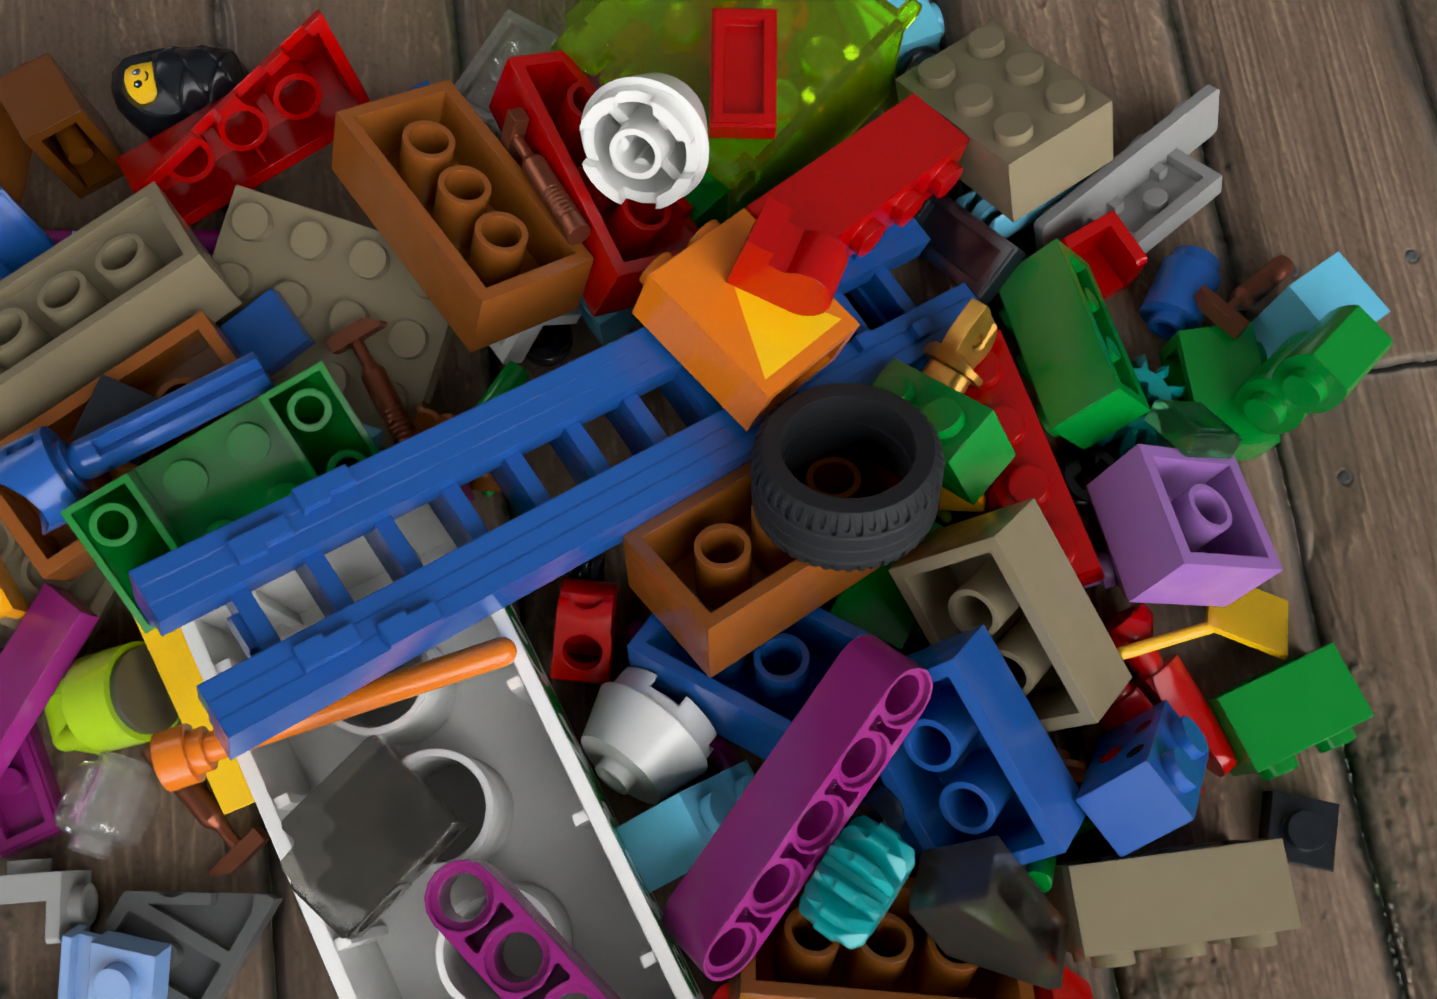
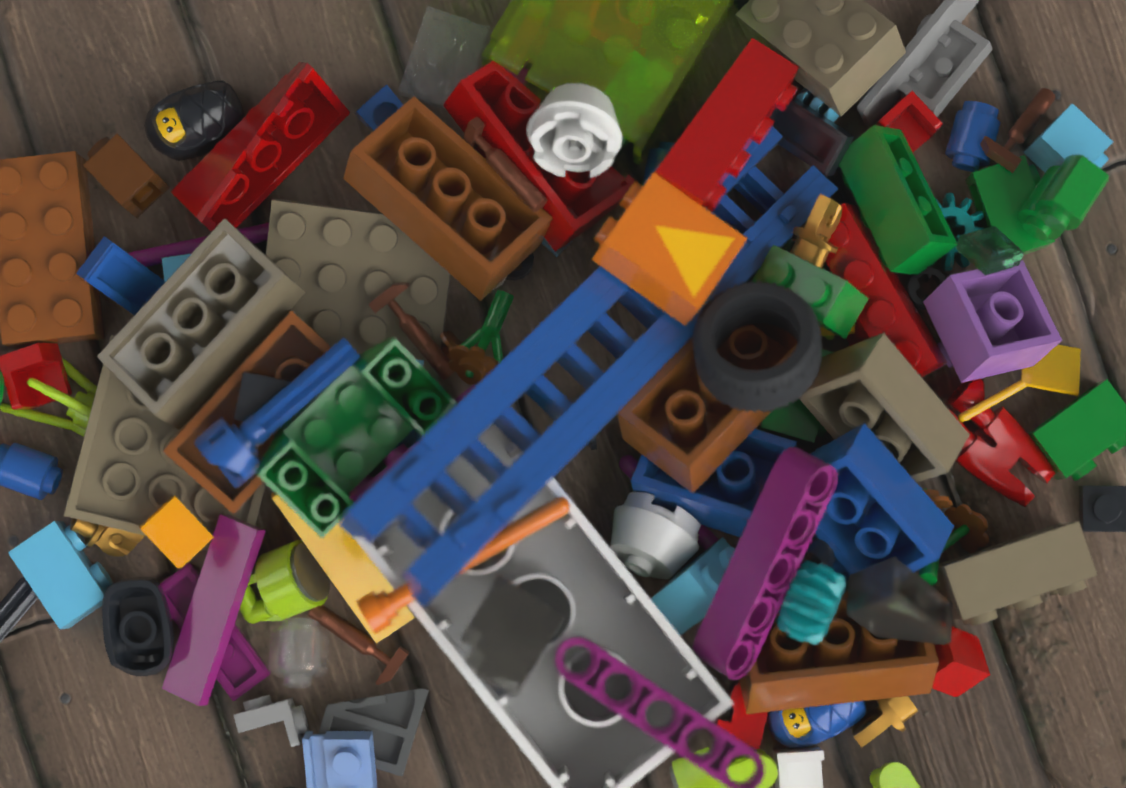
camera: 10 degrees left, 10 degrees up
(269, 330) = (325, 308): blue tile -> none
(585, 627) = (596, 468): red leg -> none
(743, 73) = (630, 62): red tile -> none
(788, 263) = (693, 213): red leg -> none
(1145, 778) = (987, 498): blue brick -> none

